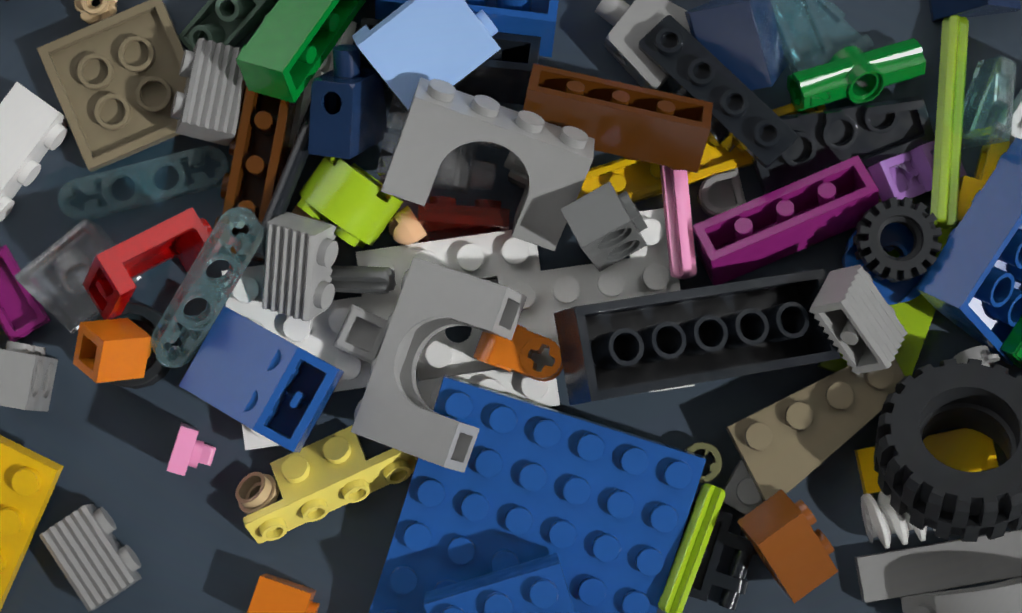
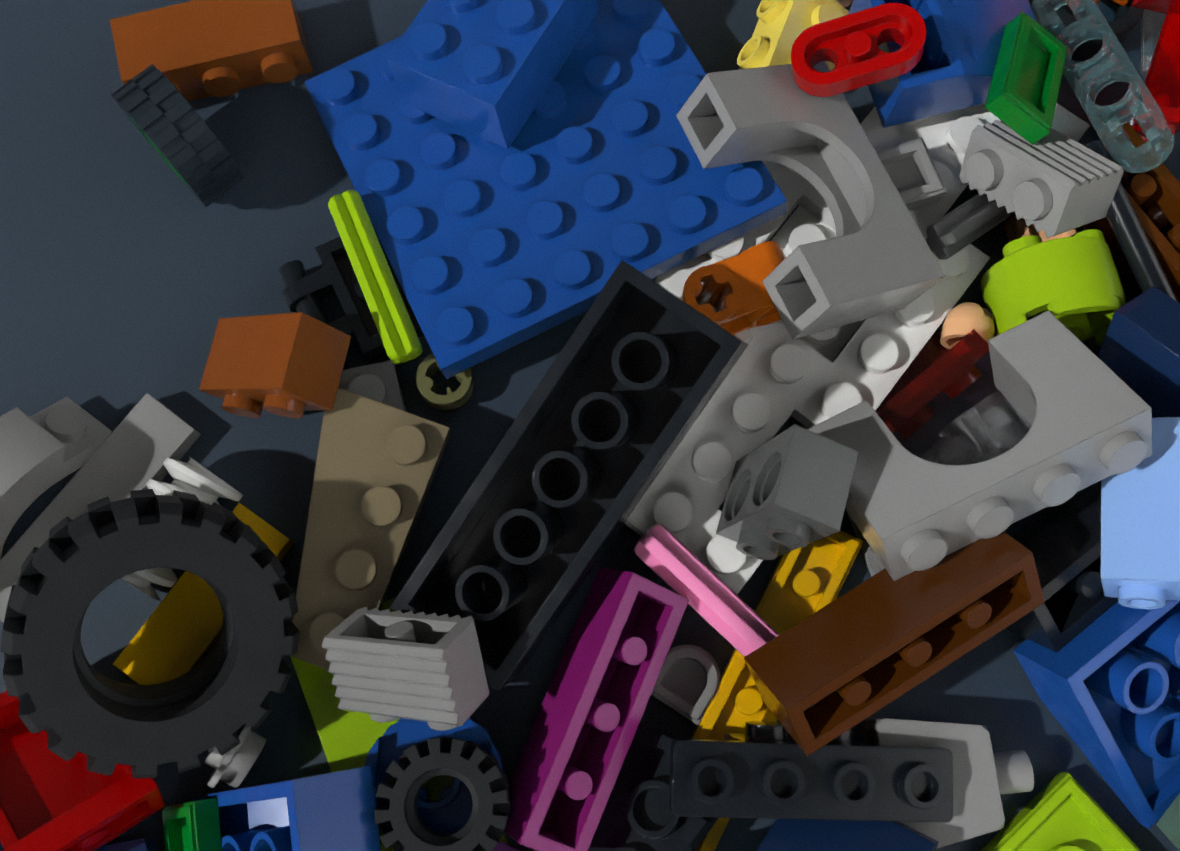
camera: 135 degrees right, 10 degrees down
(257, 318) = (1027, 78): none -> green tile
(346, 409) = (854, 48): none -> red plate

